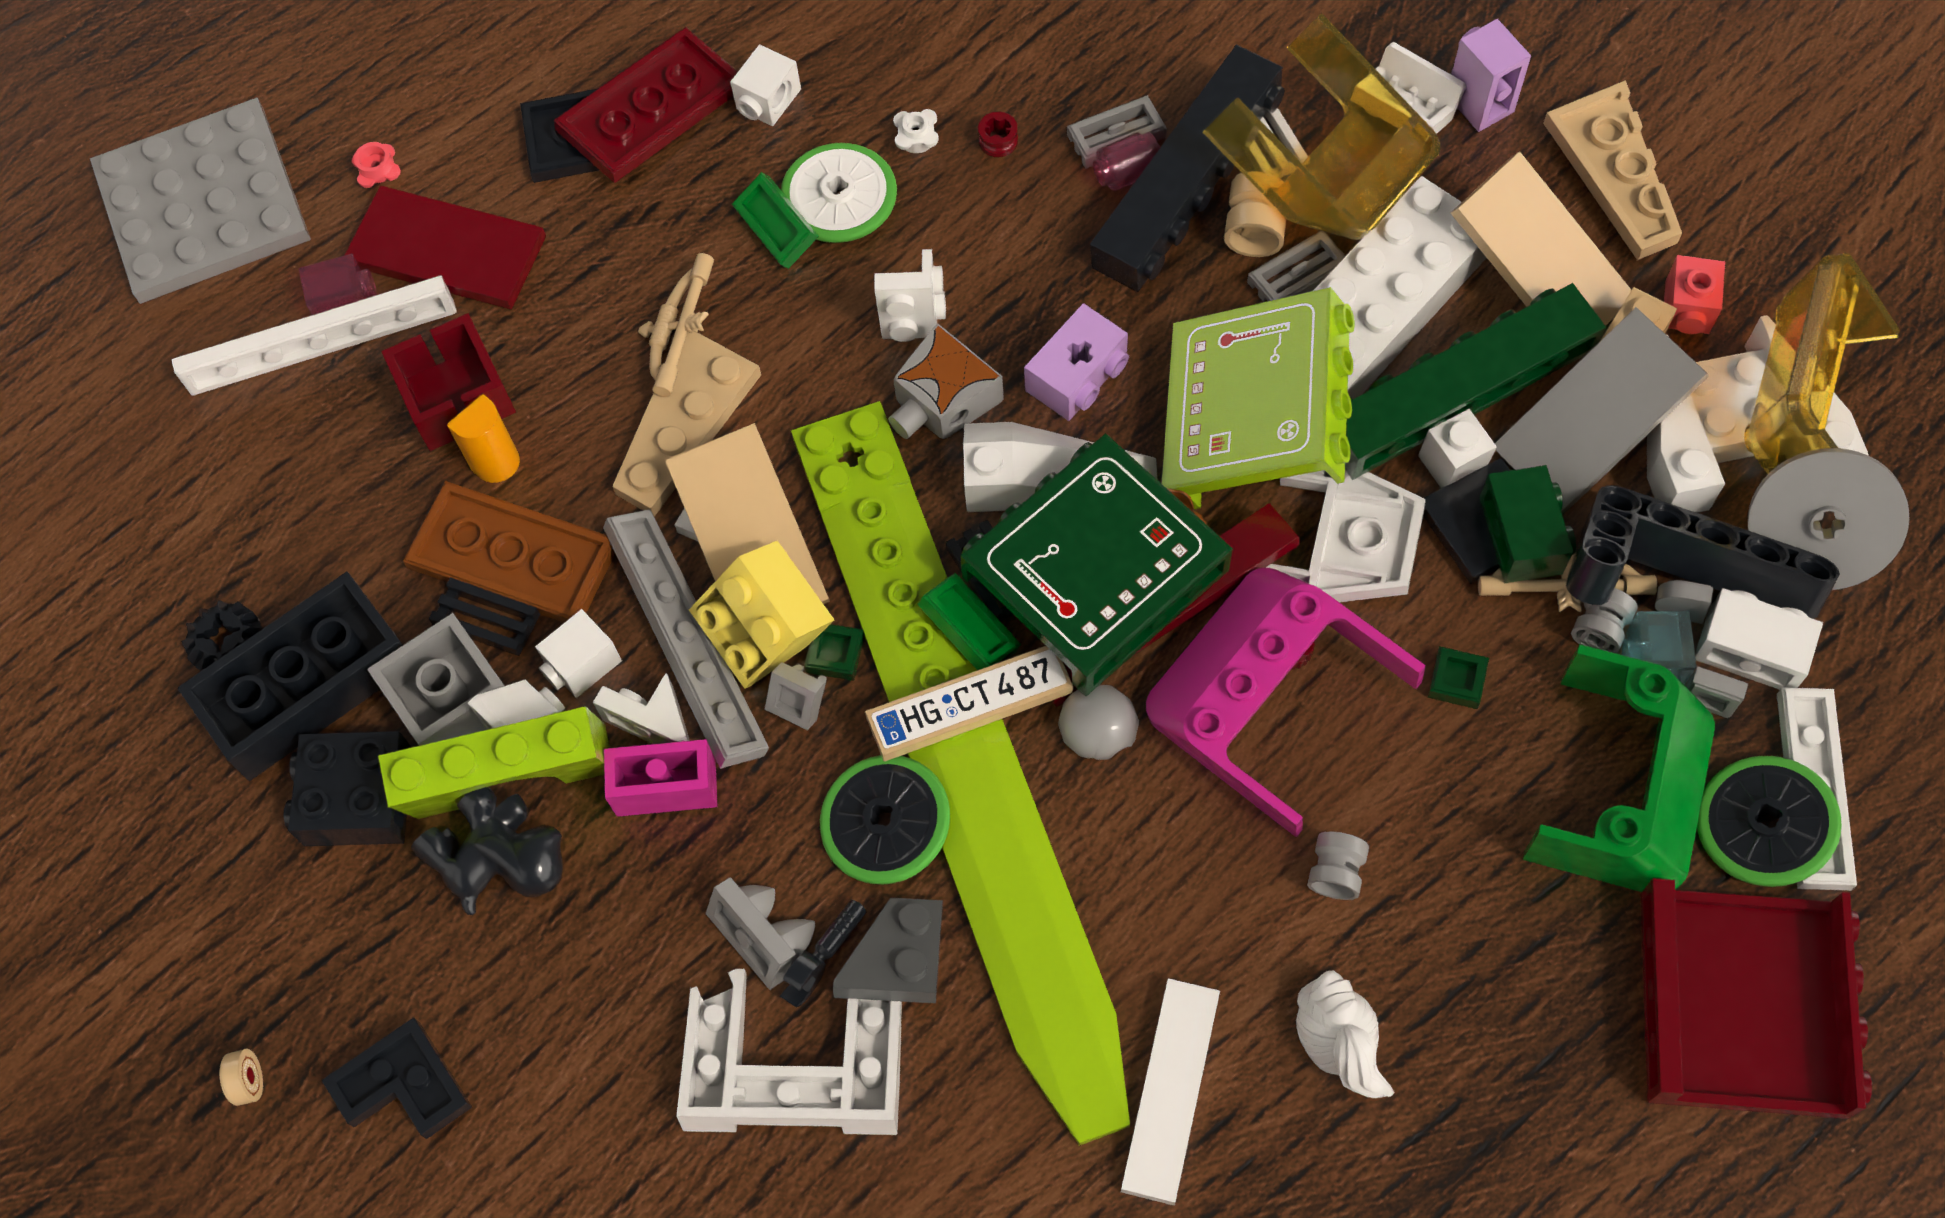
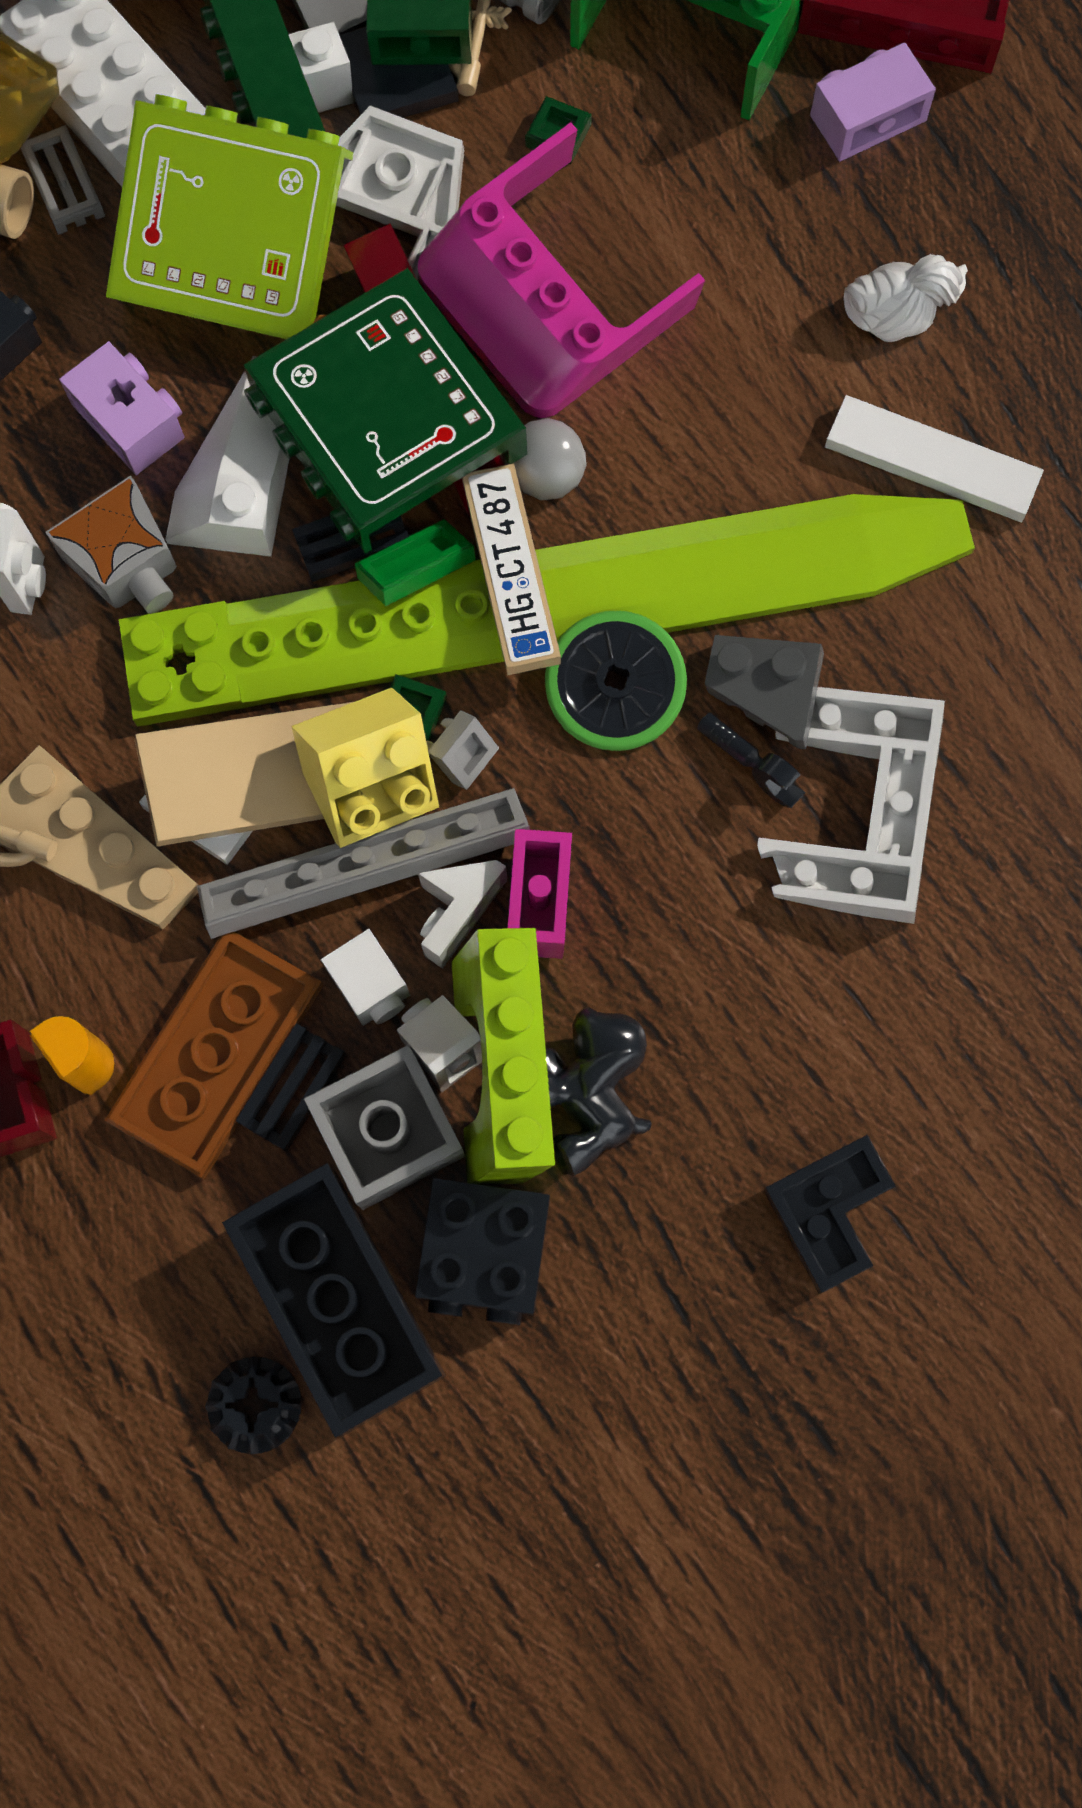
camera: 85 degrees left, 10 degrees up
(241, 1077) = (804, 1387): tan tile -> none
(765, 947) = (735, 815): light grey tile -> none
(1338, 865) = (735, 265): light grey wheel -> none
(1564, 971) = (872, 101): none -> lavender brick

